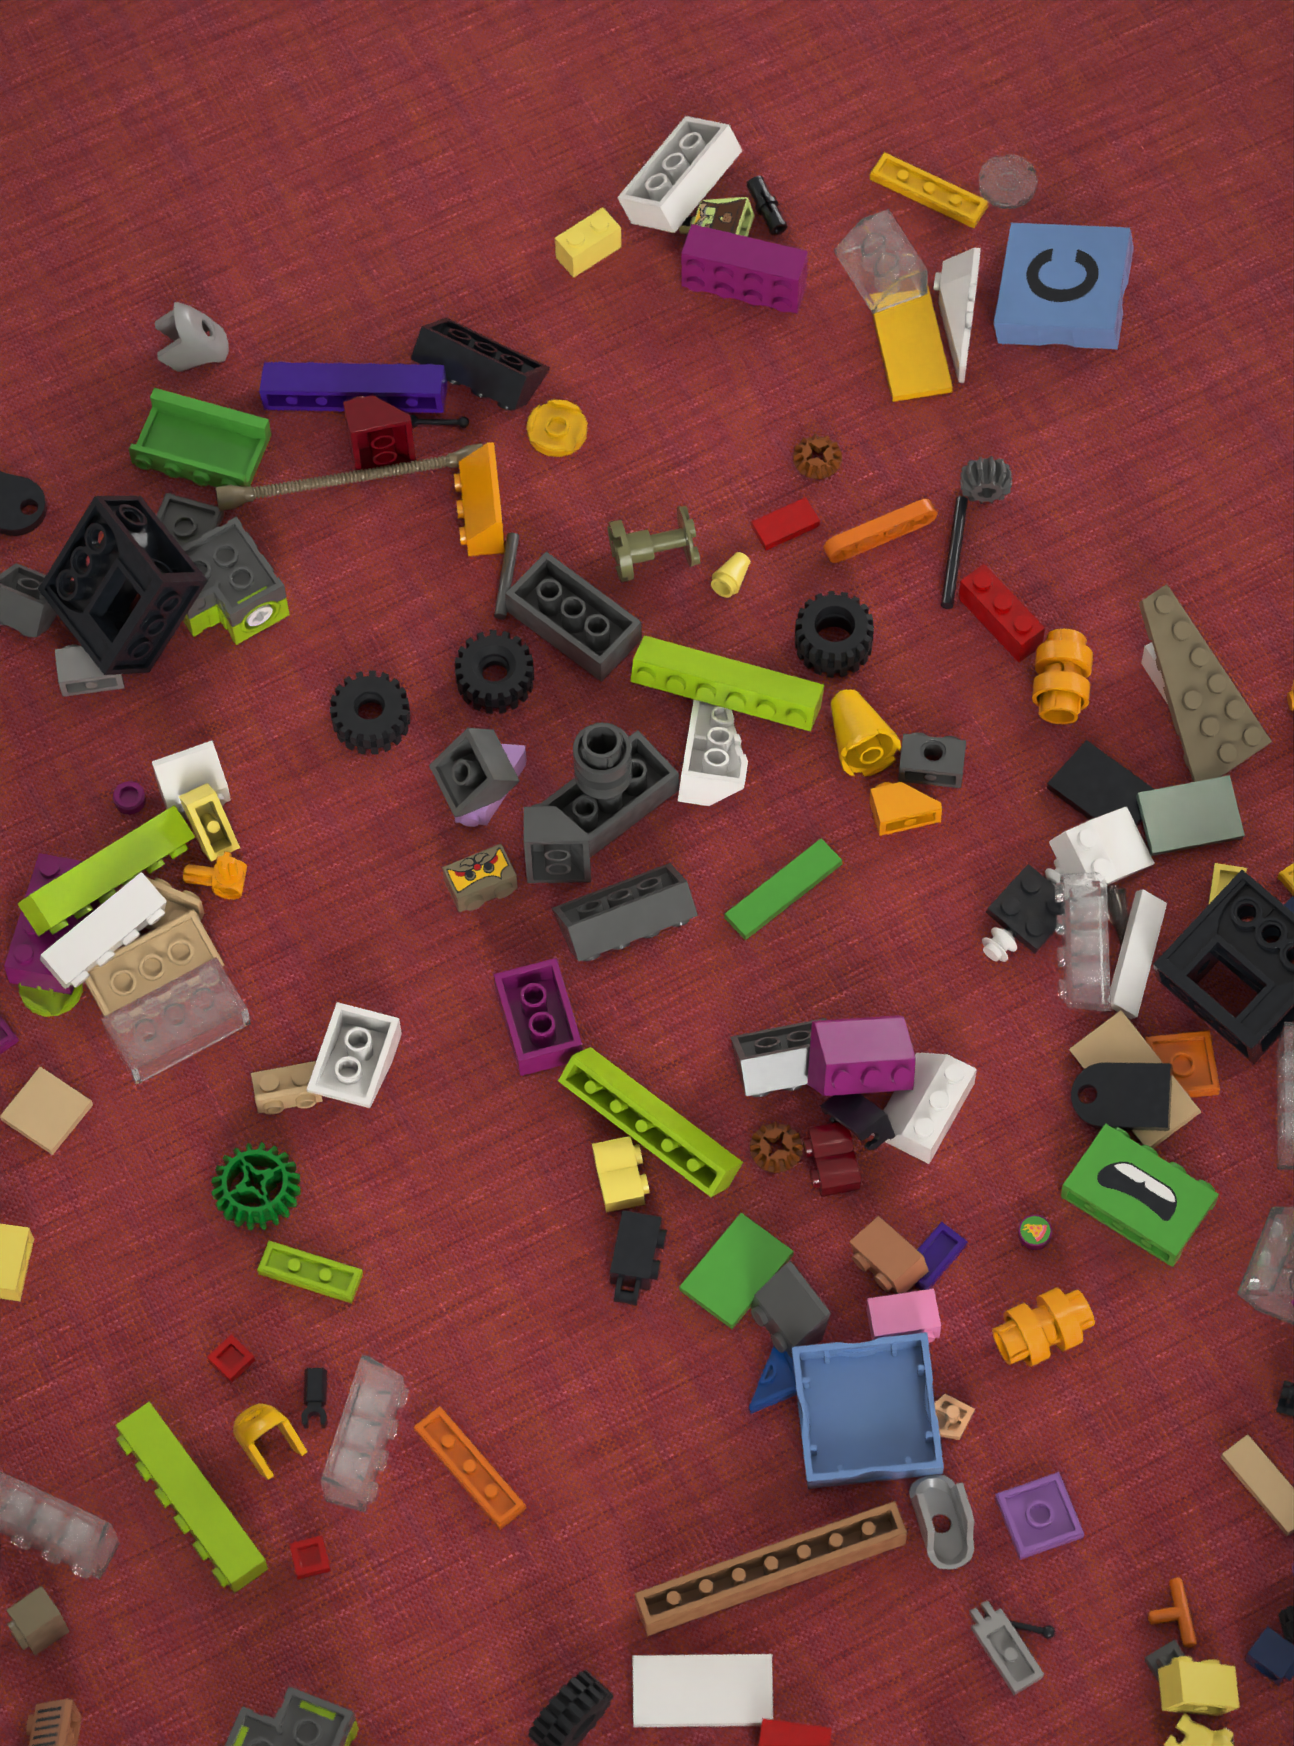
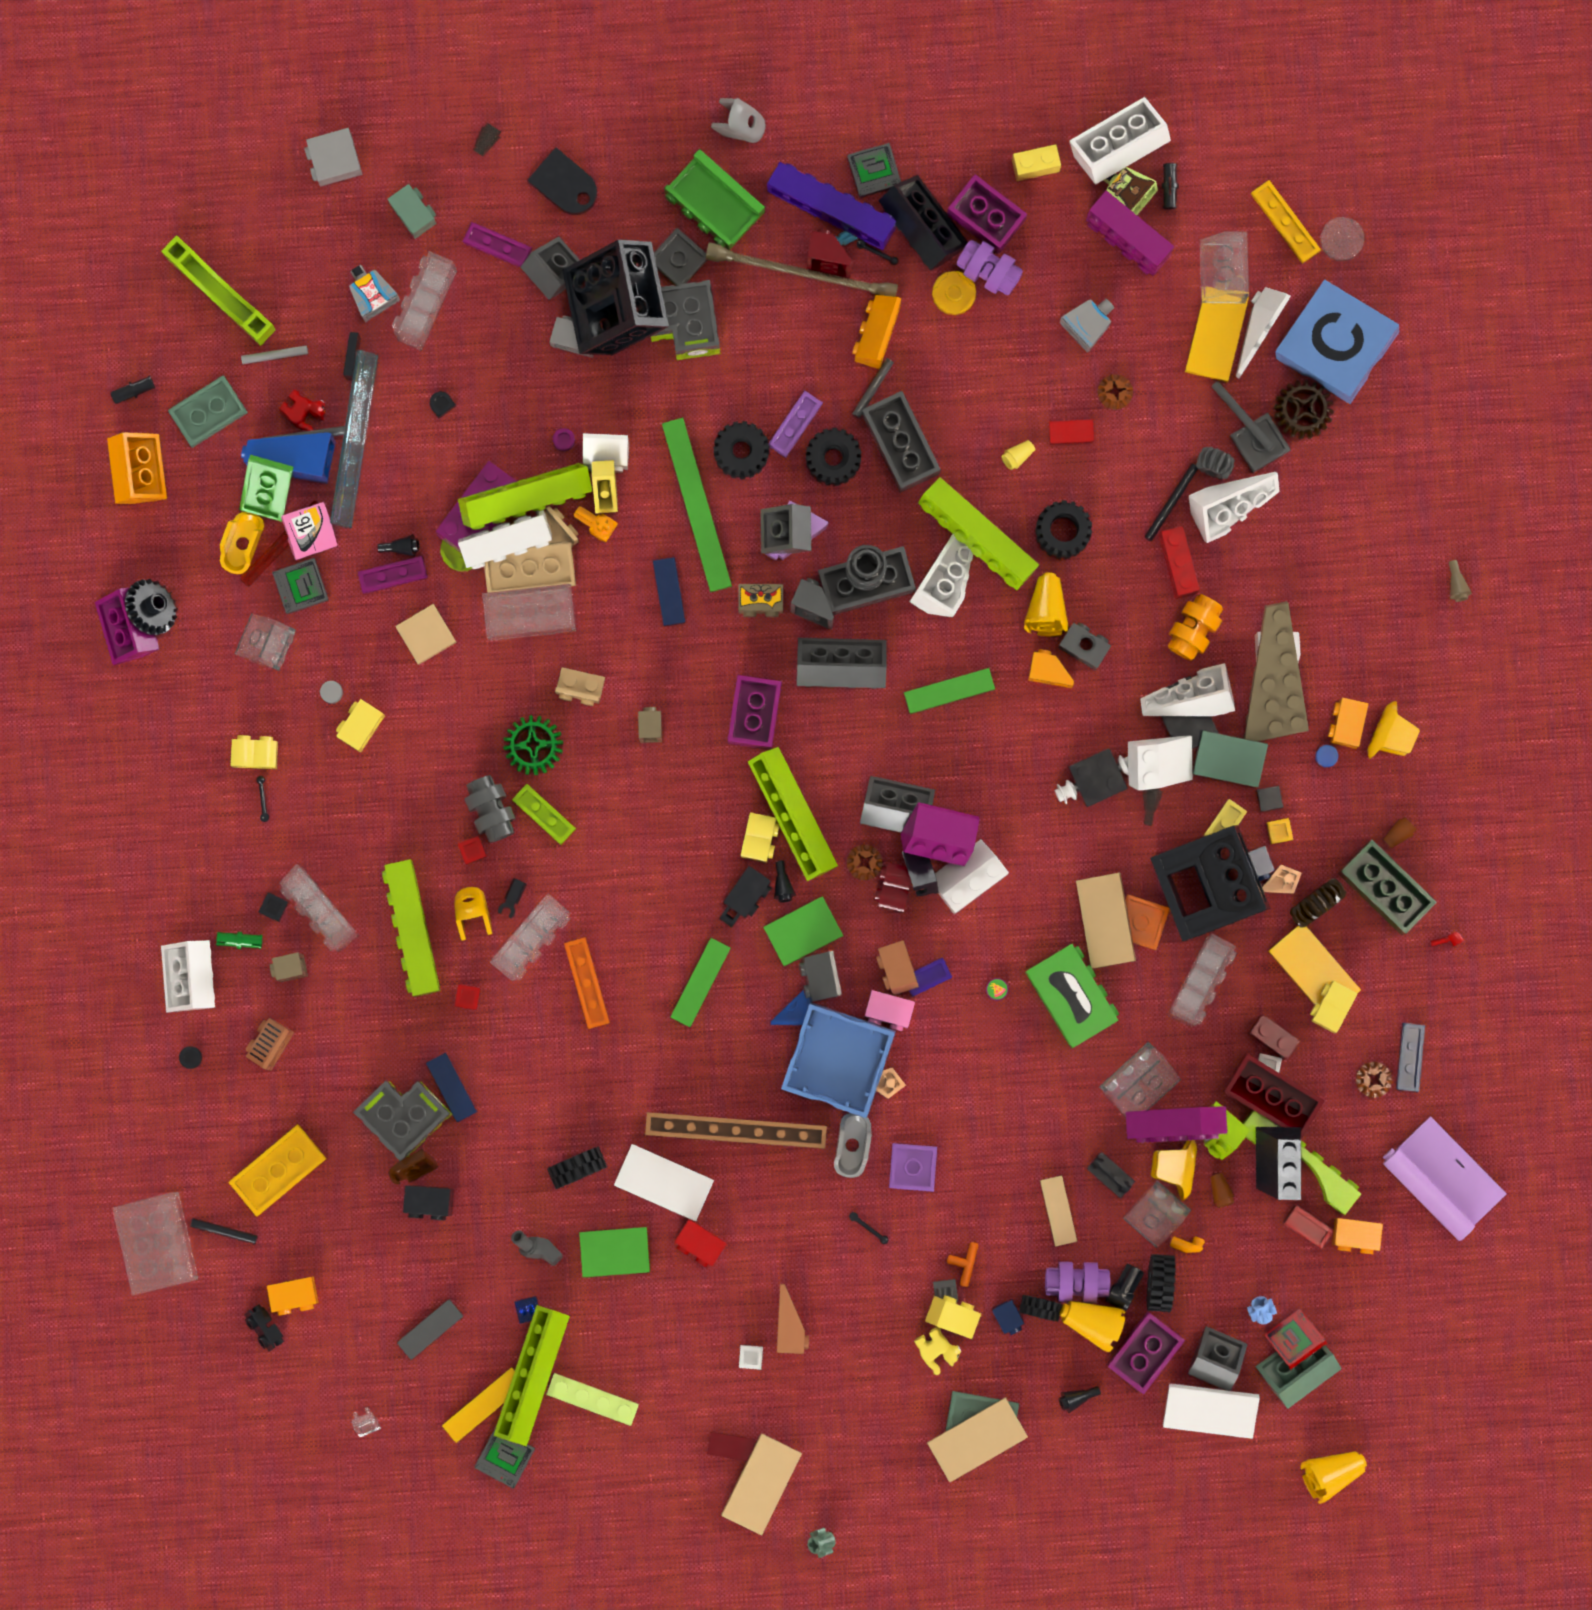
camera: 20 degrees right, 20 degrees up
(222, 1280) = (493, 816): none -> dark grey piece
(337, 1687) = (451, 1087): none -> dark blue tile
(342, 804) = (696, 505): none -> bright green tile
(353, 922) = (669, 591): none -> dark blue tile
(355, 1055) = (628, 690): white slope -> none
(386, 331) = (873, 170): none -> dark grey tile
(405, 1090) = (650, 725): none -> dark tan brick
(426, 656) = (795, 424): none -> medium lavender tile
(554, 319) = (986, 213): none -> magenta brick
(574, 374) = (975, 261): none -> medium lavender piece
(627, 1398) = (700, 982): none -> bright green tile
(641, 546) = (966, 412): olive piece -> none
(684, 1226) = (783, 886): none -> black cone
(742, 392) = (1088, 322): none -> light grey torso
(880, 530) = (1130, 466): orange beam -> none
(992, 417) = (1243, 416): none -> dark grey bar
(1005, 1648) = (853, 1239): light grey hinge -> none
(1024, 525) = (1224, 504): none -> white wedge
(1029, 441) = (1253, 451): none -> dark grey tile
(1031, 1332) = (963, 1055): light orange piece -> none
(1078, 389) = (1296, 403): none -> dark brown gear
(1084, 941) = (1115, 822): clear slope -> none
(1120, 746) = (1200, 696): none -> white wedge
(1127, 1095) = (1095, 930): black tile -> none
(1137, 953) = (1149, 836): white tile -> none
(1266, 844) = (1269, 798): none -> black tile

